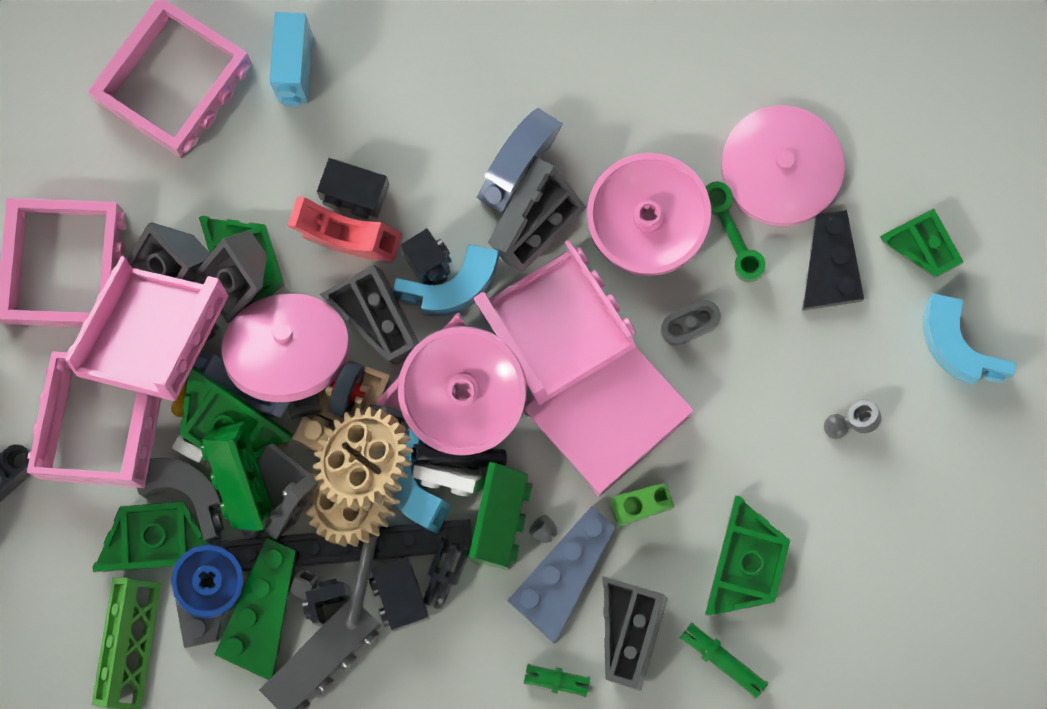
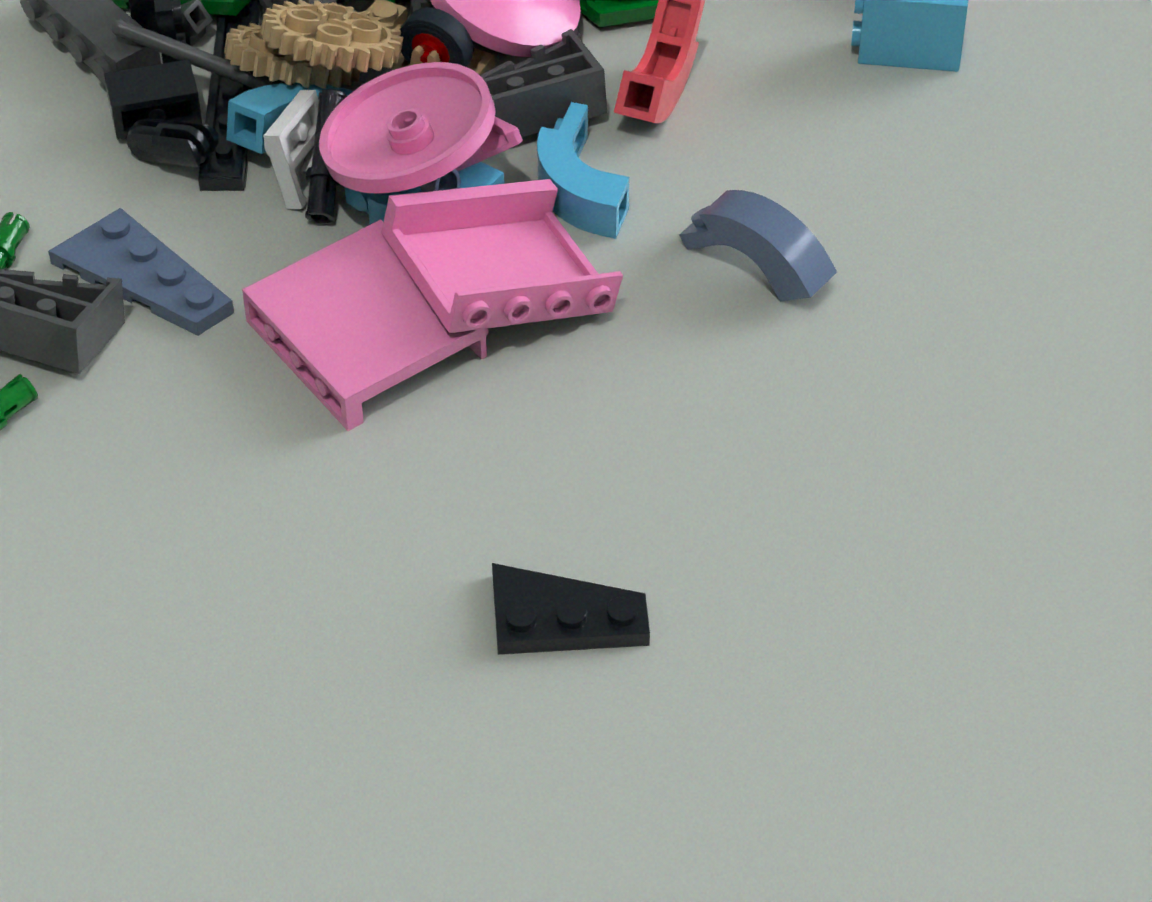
camera: 90 degrees right, 30 degrees down
(352, 189) = (723, 79): black brick -> none
(427, 258) = (612, 130): black brick -> none
(500, 517) = (234, 186): green slope -> none
(535, 215) = (667, 251): dark grey wedge -> none
(543, 529) = (208, 252): dark grey hinge -> none
(641, 504) = (221, 348): bright green leg -> none
(649, 214) = (658, 378): bright pink dish -> none
(689, 322) = (492, 435): dark grey plate -> none
(748, 562) = (111, 465): green wing -> none
(749, 263) = (571, 503): green piece -> none
(783, 165) = (733, 566): bright pink dish -> none
(837, 426) = (299, 617): dark grey plate -> none
(925, 244) = (580, 735): green wing -> none
(950, 350) = (399, 743): medium azure arch -> none

